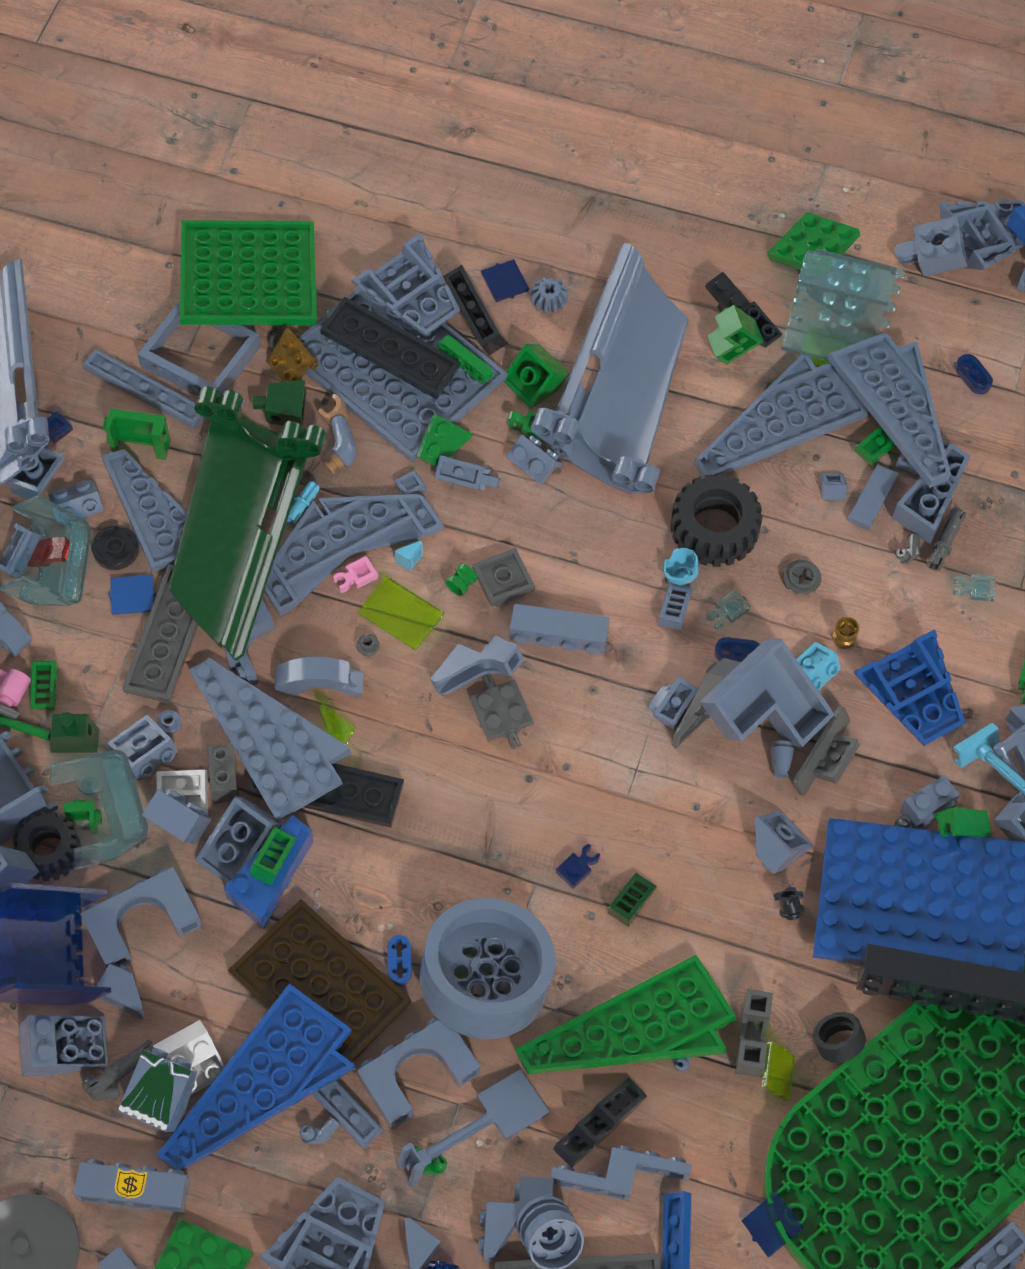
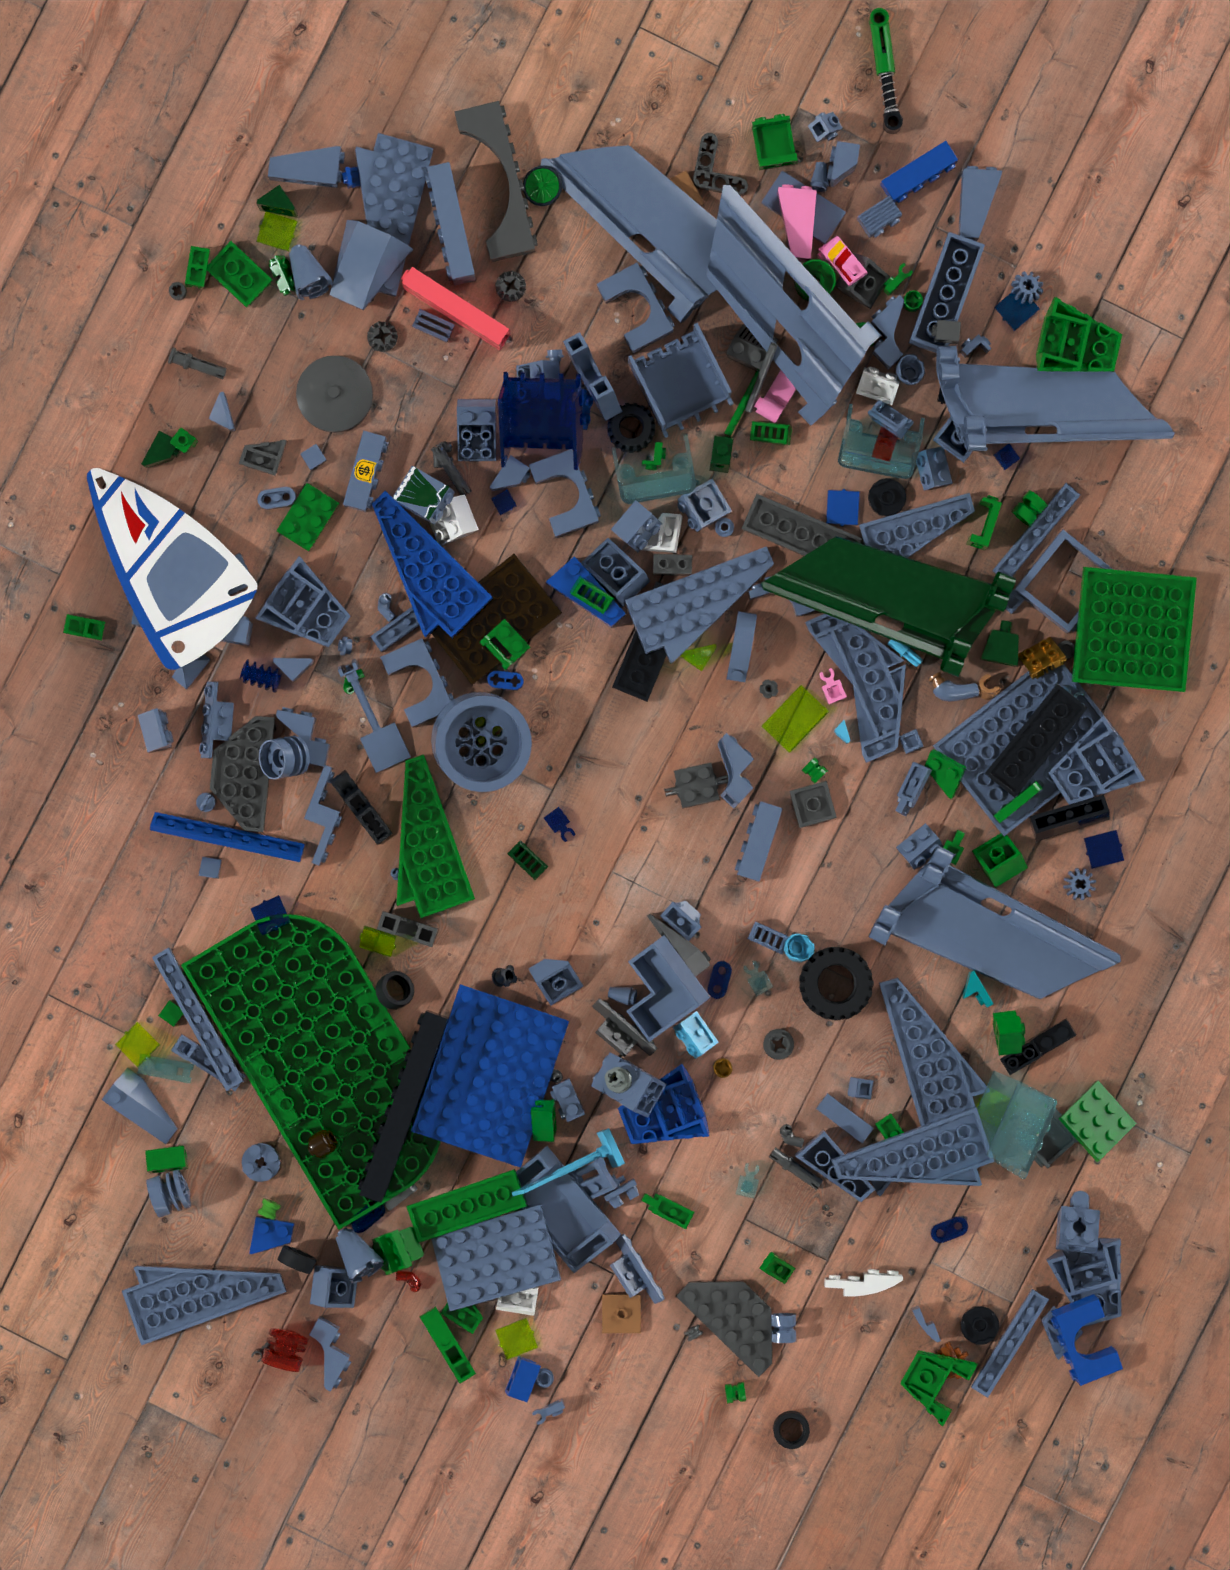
camera: 100 degrees right, 25 degrees up
(115, 394) = (1029, 508): none -> green wheel
(160, 996) = (504, 502): none -> clear blue tile
(346, 956) = (509, 639): none -> green plate
(380, 1178) = (345, 646): none -> sand blue plate
(689, 381) = (974, 985): none -> teal slope
(895, 727) = (628, 1084): none -> sand blue piece

